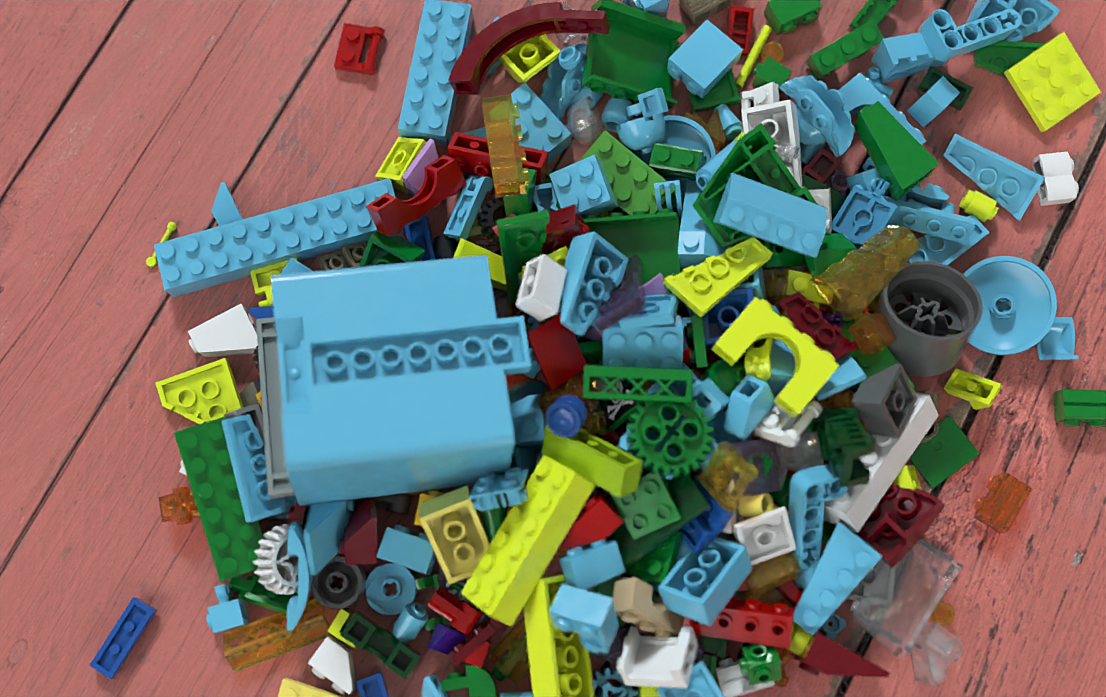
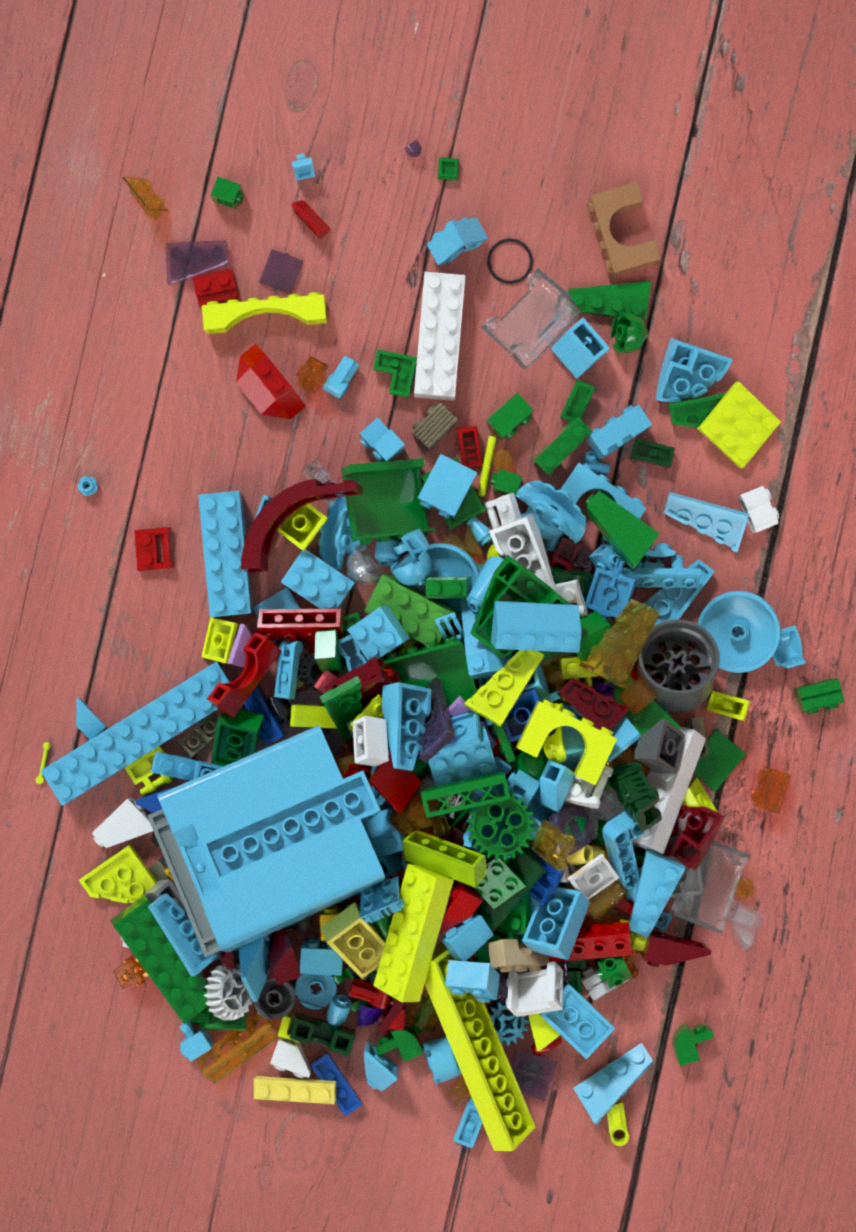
camera: 25 degrees left, 10 degrees up
(123, 638) = (120, 1082): blue plate -> none
(296, 546) = (238, 986): medium azure slope -> none
(503, 145) = (305, 622): clear yellow wedge -> none
(566, 416) = (417, 832): blue wheel -> none
(570, 57) = (336, 521): medium azure plate -> none
(787, 152) = (535, 563): clear plate -> none
(933, 101) = (645, 469): medium azure slope -> none
(949, 41) = (666, 405): medium azure beam -> none
(979, 205) = (701, 549): neon yellow brick -> none

